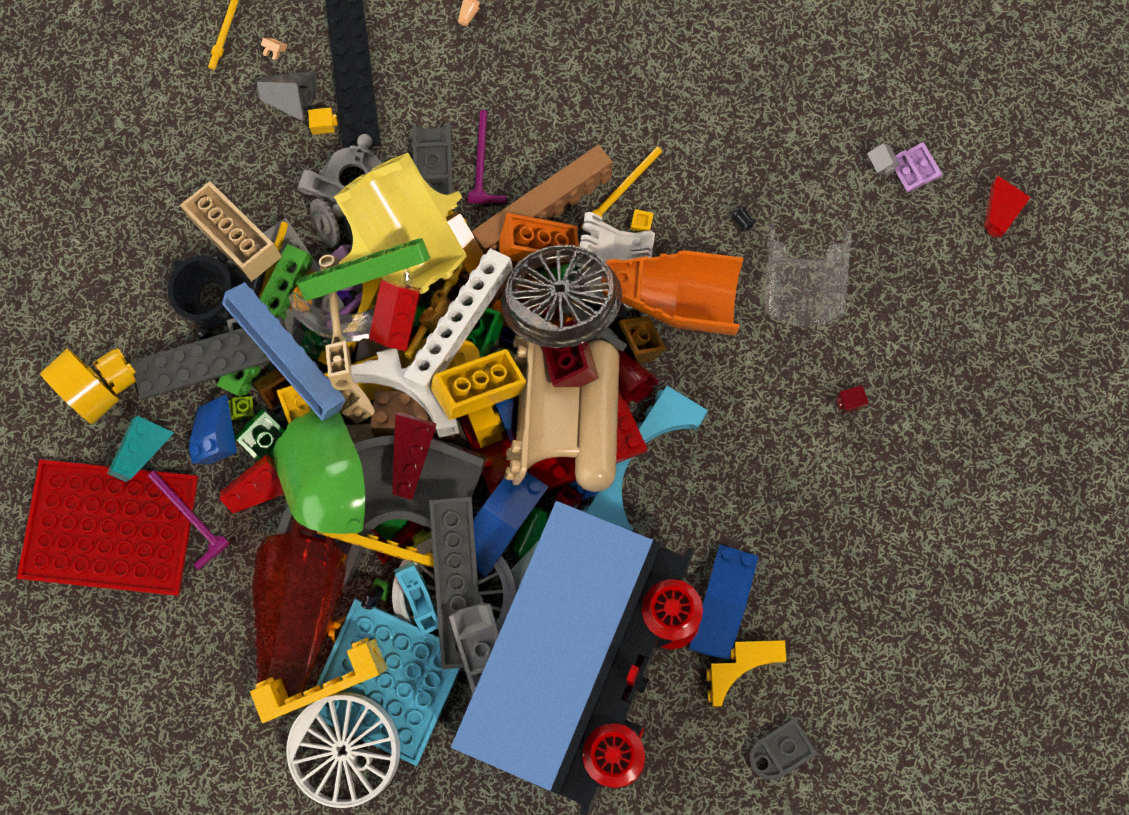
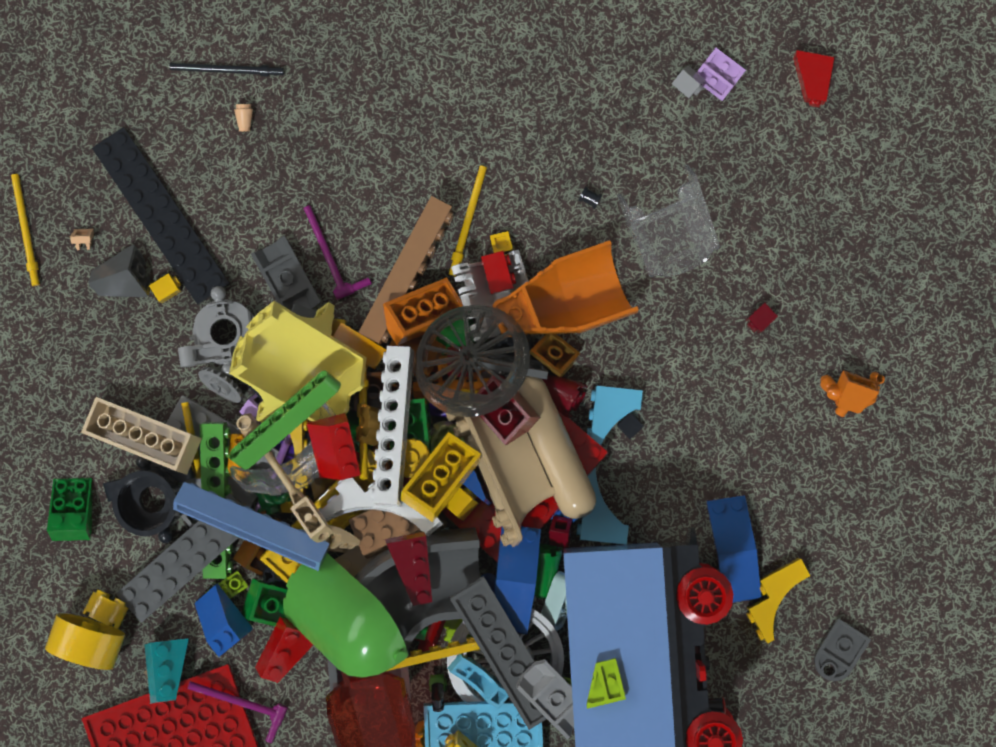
camera: 30 degrees left, 10 degrees up
(133, 271) = (70, 510): none -> green slope
(534, 642) = (605, 684): none -> lime wing
(626, 240) = (498, 272): none -> red brick
(680, 440) = (630, 426): none -> black tile
(908, 507) = (852, 391): none -> orange torso

